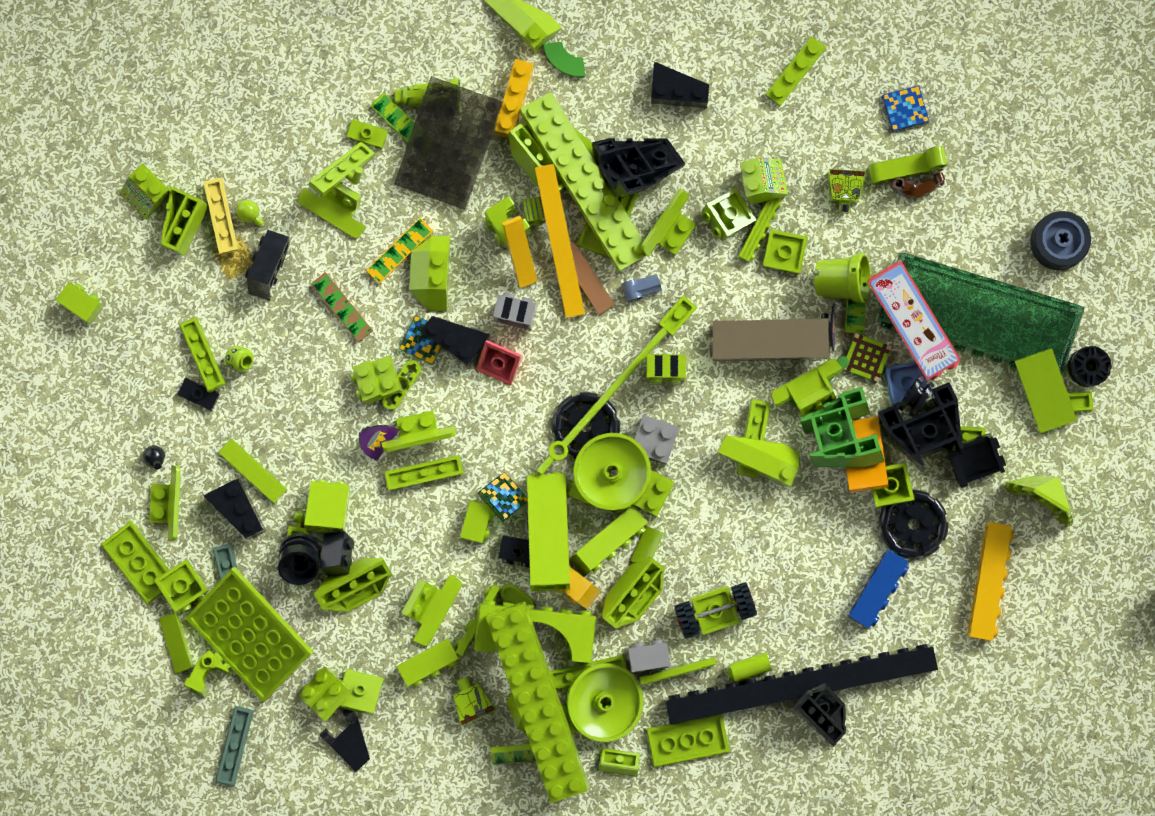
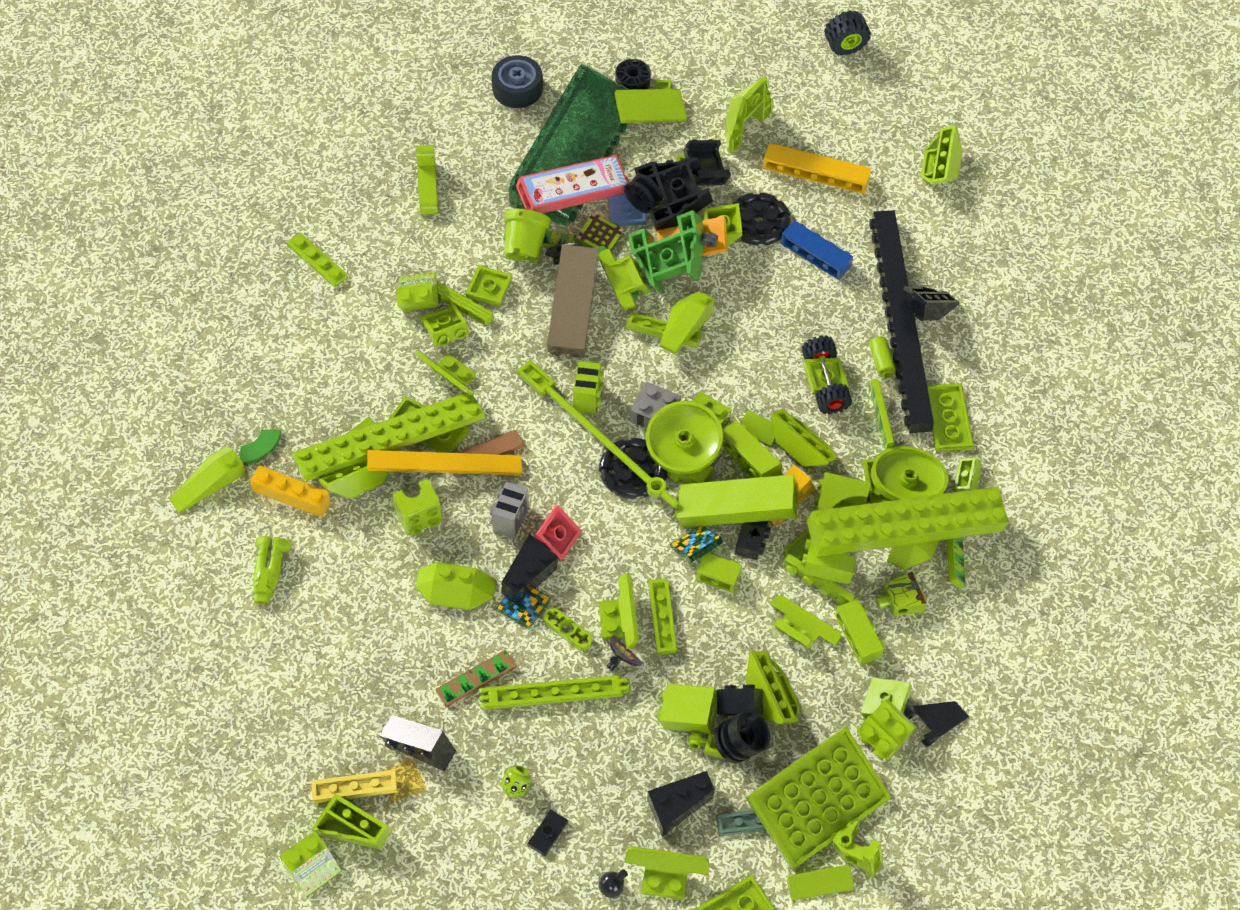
camera: 90 degrees left, 25 degrees down
(182, 586) = (759, 865): lime plate -> none
(202, 354) = (504, 822): lime tile -> none
(234, 745) = (936, 834): sand green tile -> none
(248, 211) = (356, 758): lime piece -> none
(253, 470) = (639, 785): lime tile -> none
(334, 381) = (553, 692): none -> lime hinge
(336, 208) = (365, 671): lime plate -> none
(342, 169) = (331, 652): lime plate -> none
(367, 134) = (294, 634): lime plate -> none
(376, 380) = (559, 649): lime plate -> none
(394, 116) = (293, 599): tile -> none
(399, 250) = (425, 616): tile -> none
(448, 142) = (323, 551): clear smoke plate -> none
(519, 251) = (450, 493): yellow tile -> none
(534, 211) = (408, 484): lime brick -> none
(635, 165) = (382, 391): black wedge -> none
(639, 288) = (503, 408): sand blue piece -> none
(649, 656) = (867, 432): light grey brick -> none
(677, 89) = (311, 352): black wedge -> none
(845, 187) = (437, 232): torso -> none
(855, 472) = (709, 240): none -> dark grey bush
(905, 108) = (372, 181): tile -> none
(918, 190) = (447, 184): reddish brown arm -> none
(1019, 719) = (942, 157): none -> lime wedge

